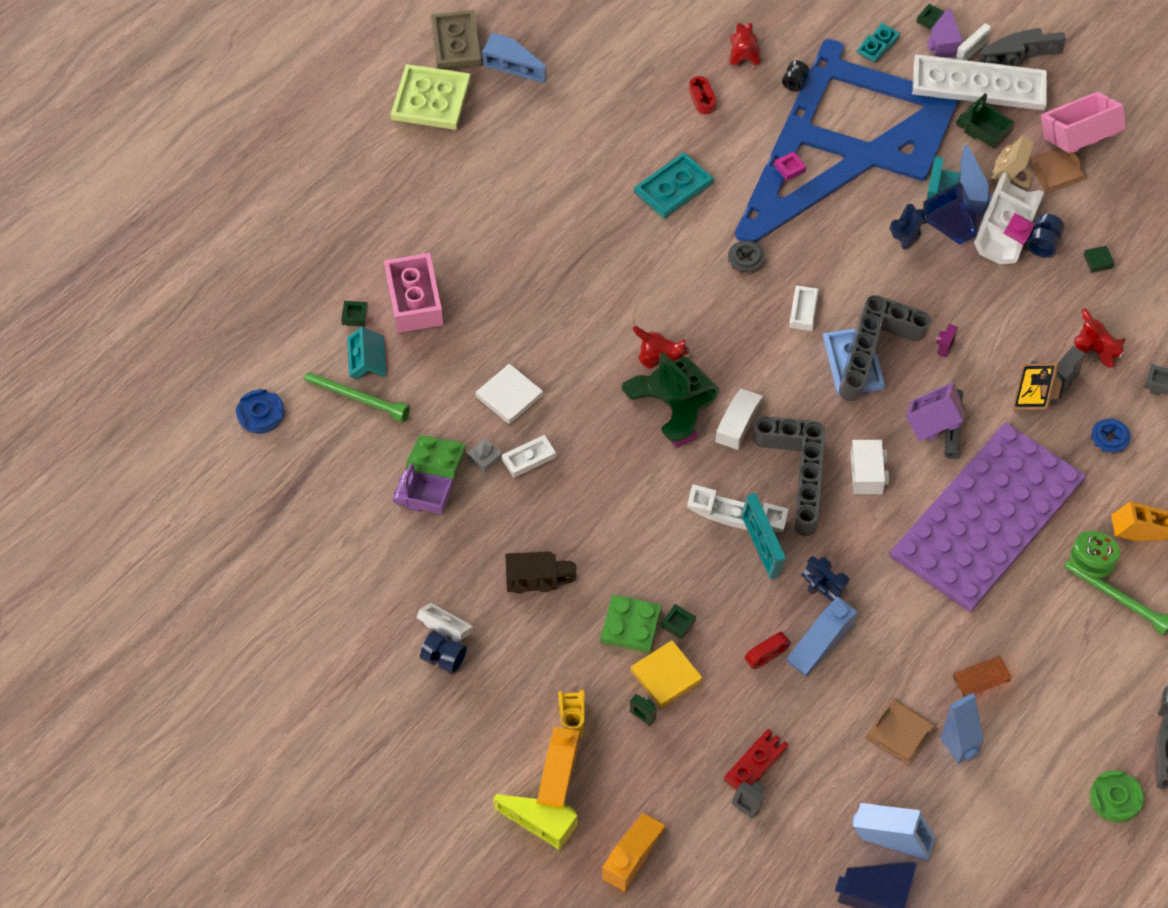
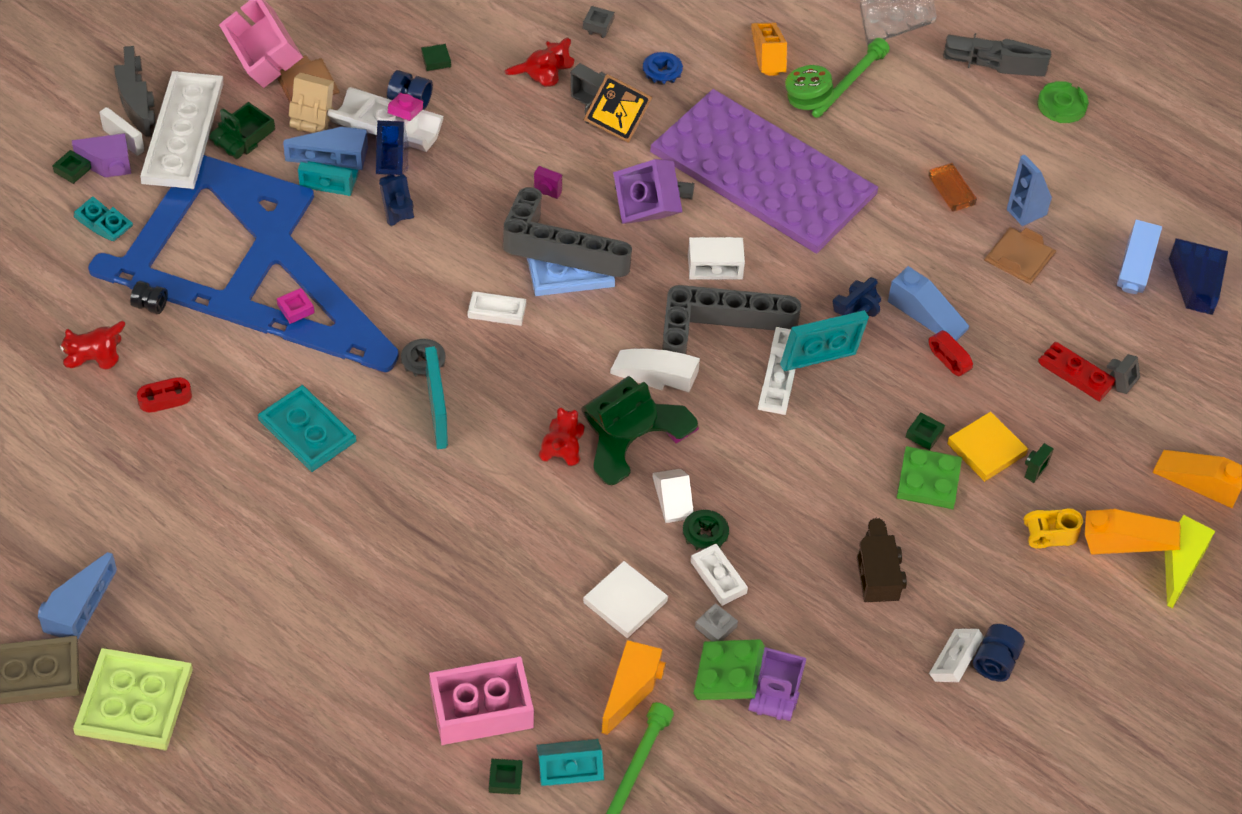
camera: 95 degrees left, 5 degrees down
(429, 392) = (633, 682): none -> light orange slope
(575, 441) = (707, 520): none -> dark green gear
(611, 427) = (674, 494): none -> white slope
(693, 256) = (436, 397): none -> teal tile

